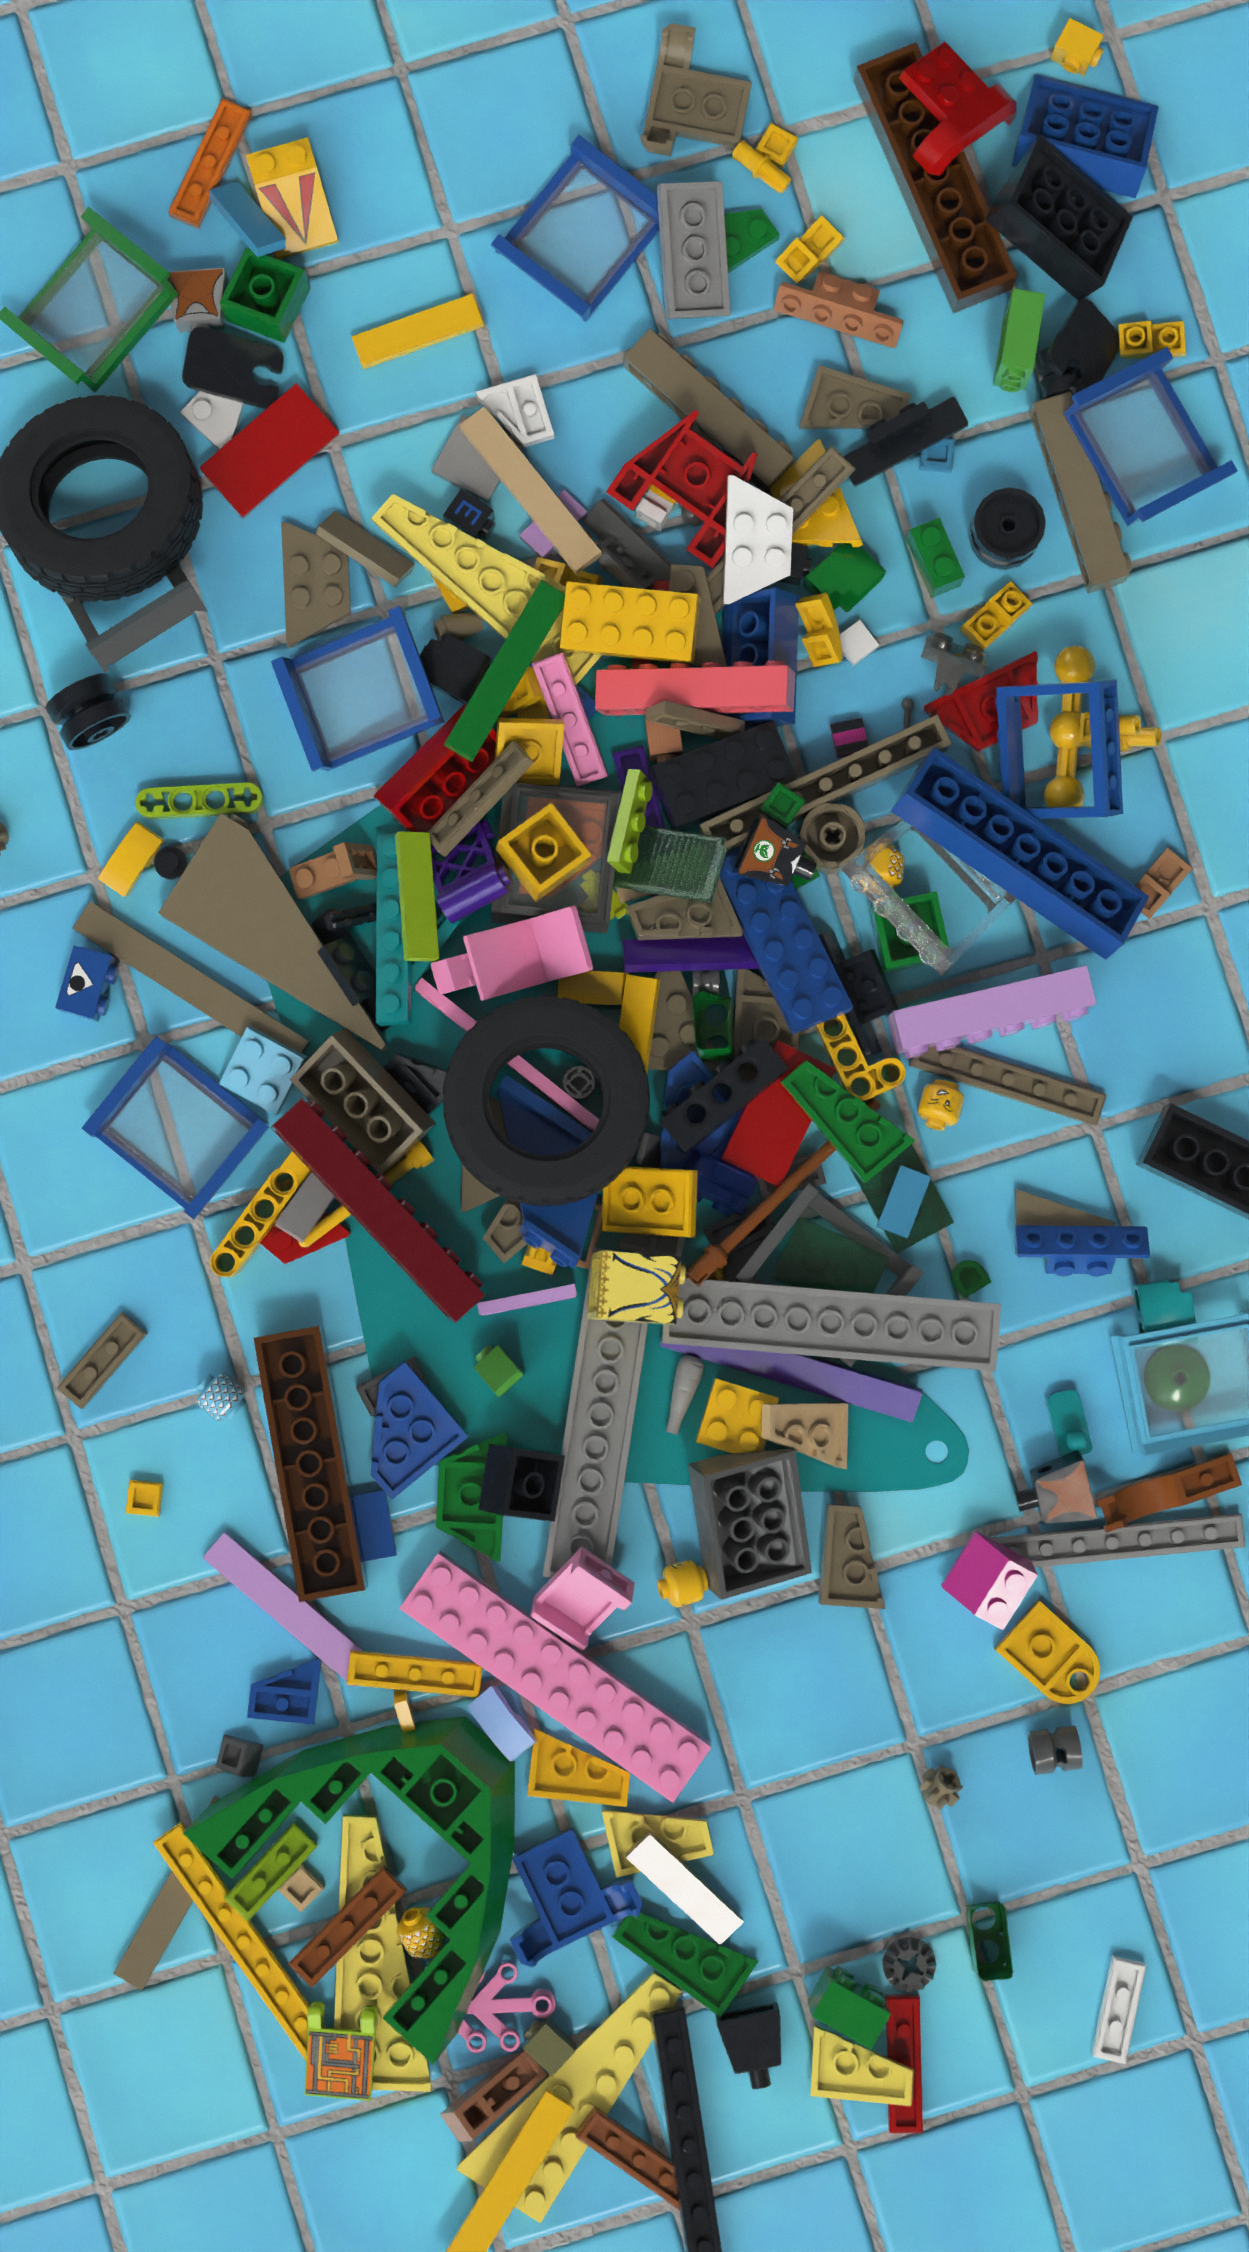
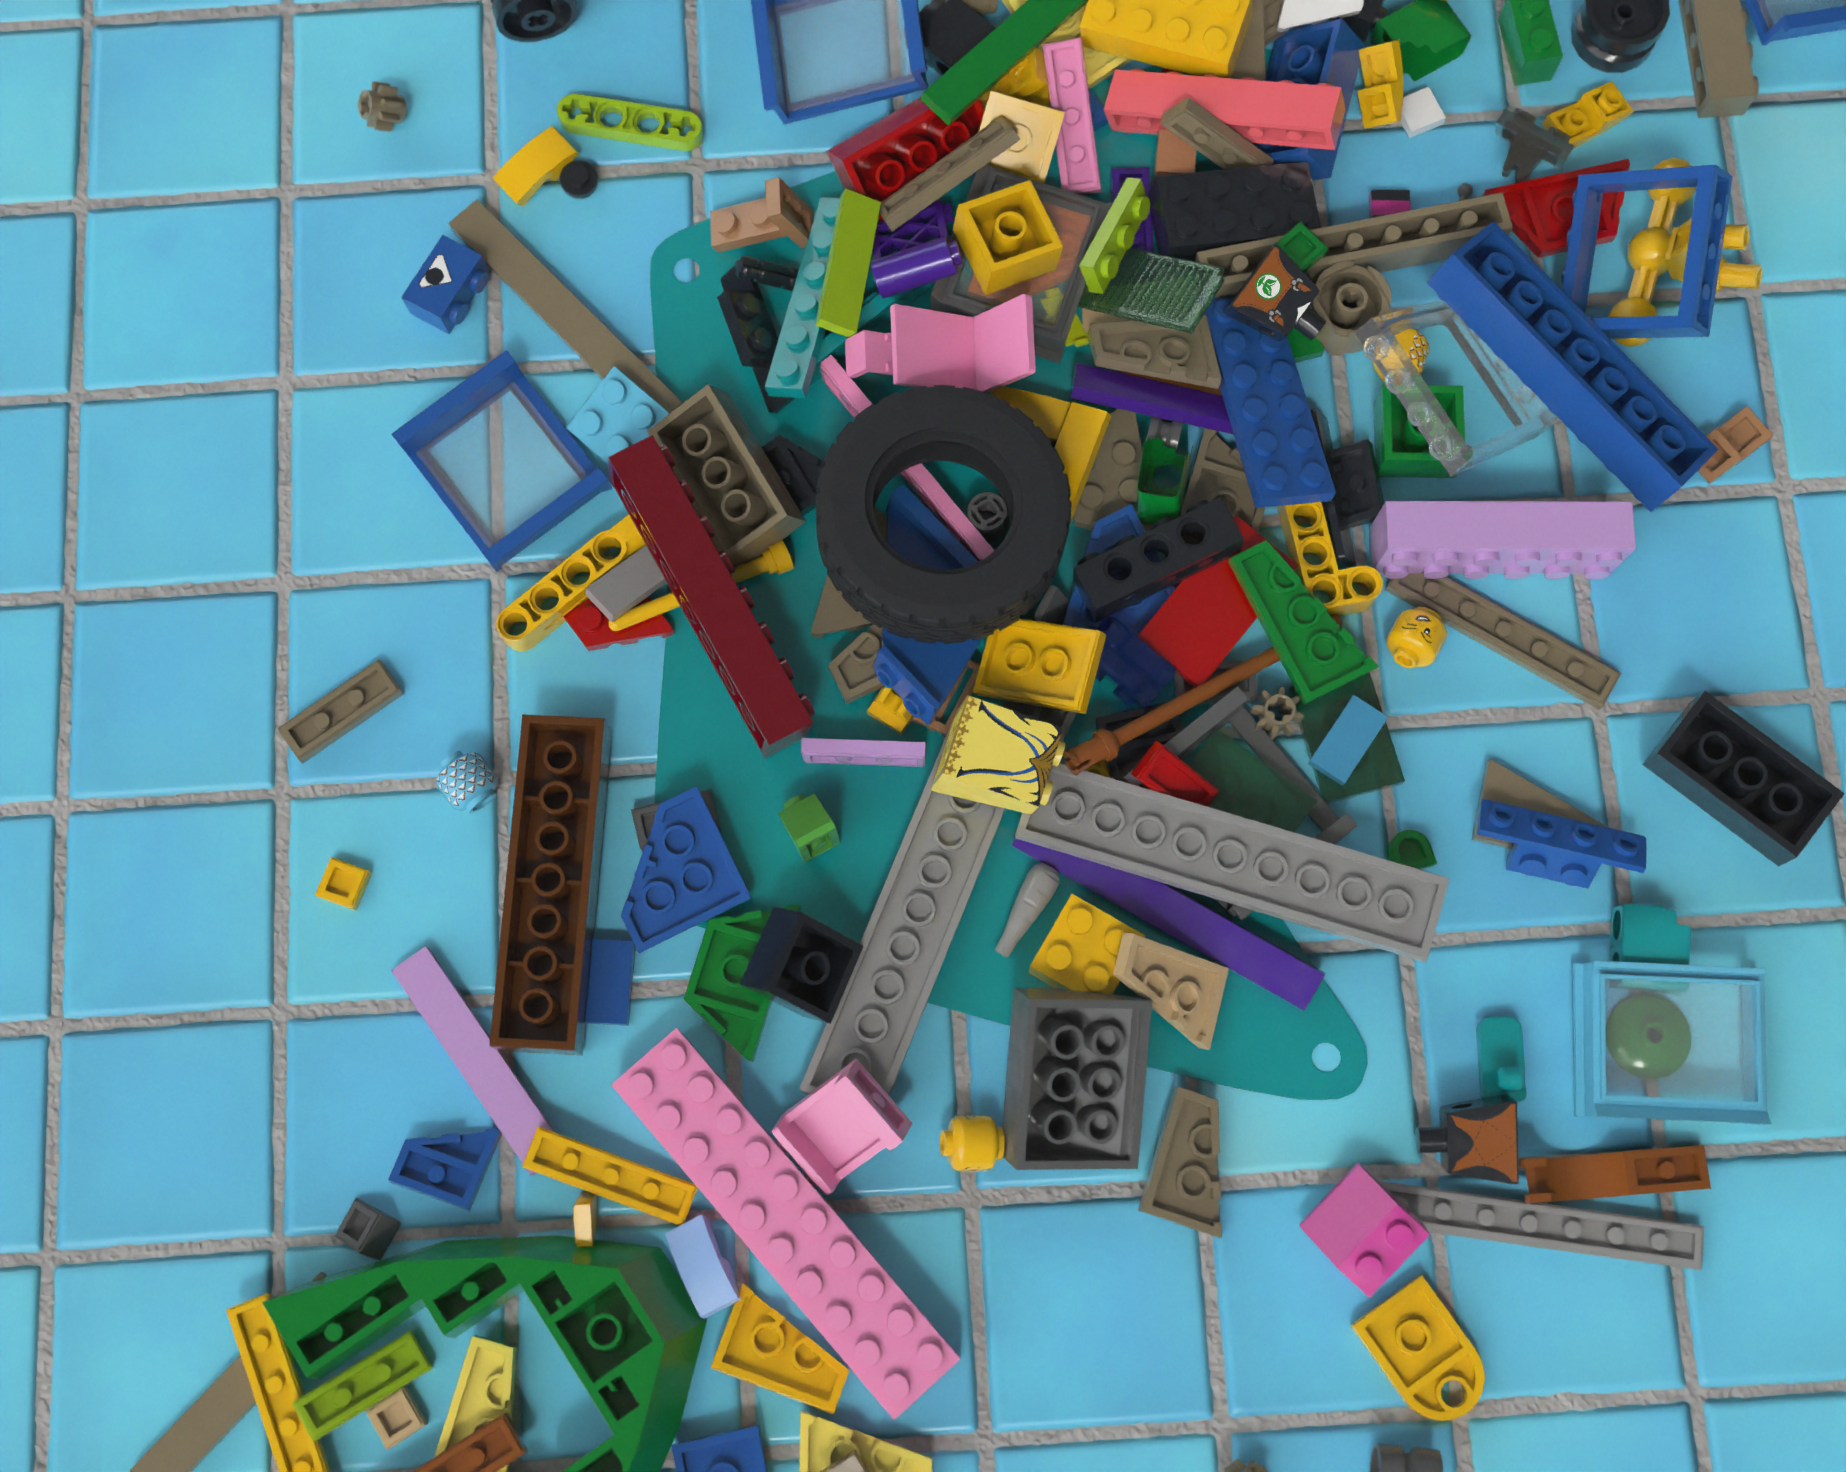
camera: 20 degrees right, 10 degrees down
(245, 912) = (649, 249): dark tan slope -> none
(774, 1269) = (1169, 775): none -> red tile
(849, 1186) = (1286, 709): none -> dark tan gear

